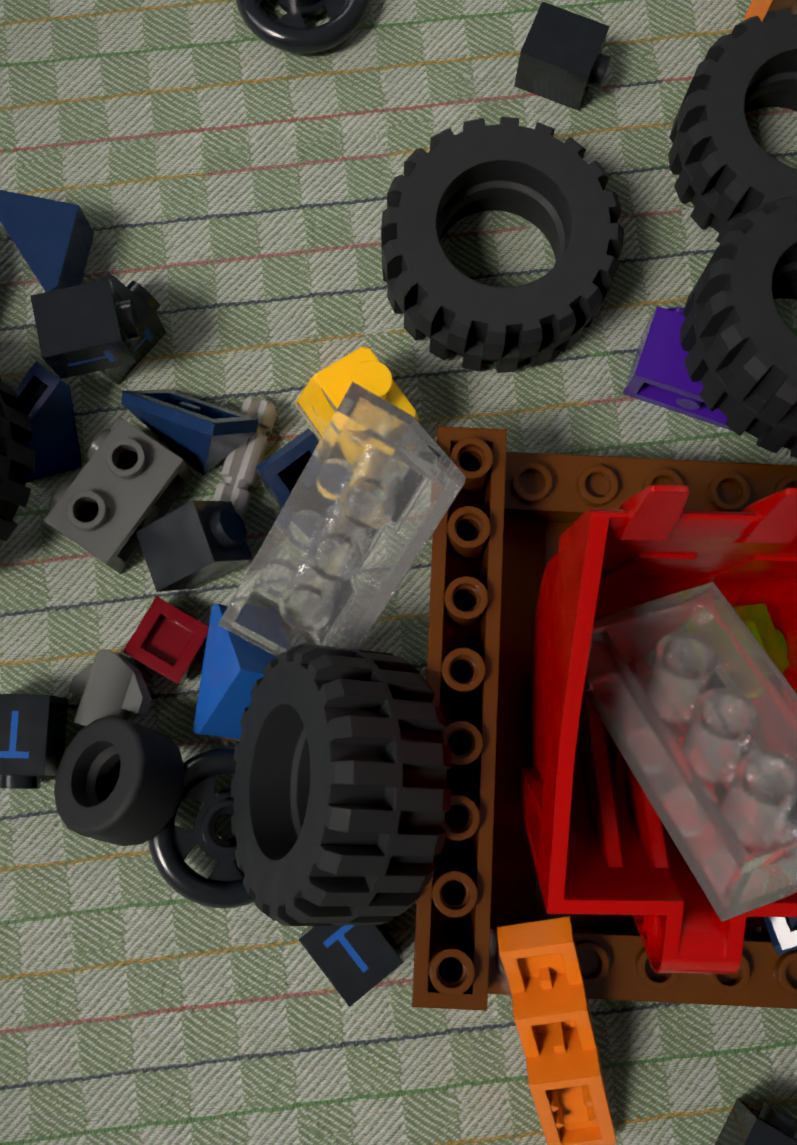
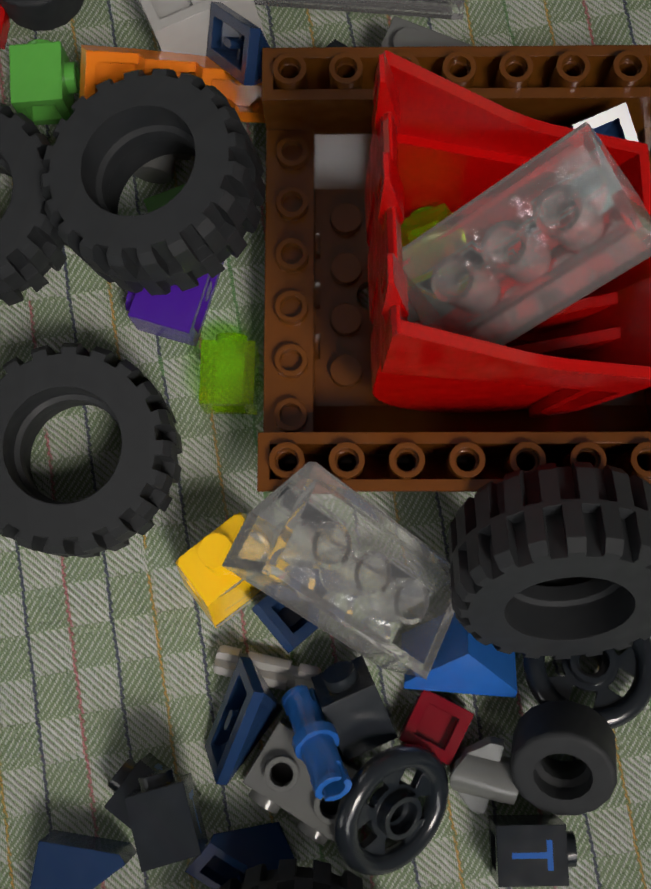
camera: 85 degrees left, 0 degrees up
(78, 581) = (392, 809): none -> black plate
(152, 493) = (316, 743): none -> blue pin
(586, 420) = (229, 375): none -> clear neon green brick

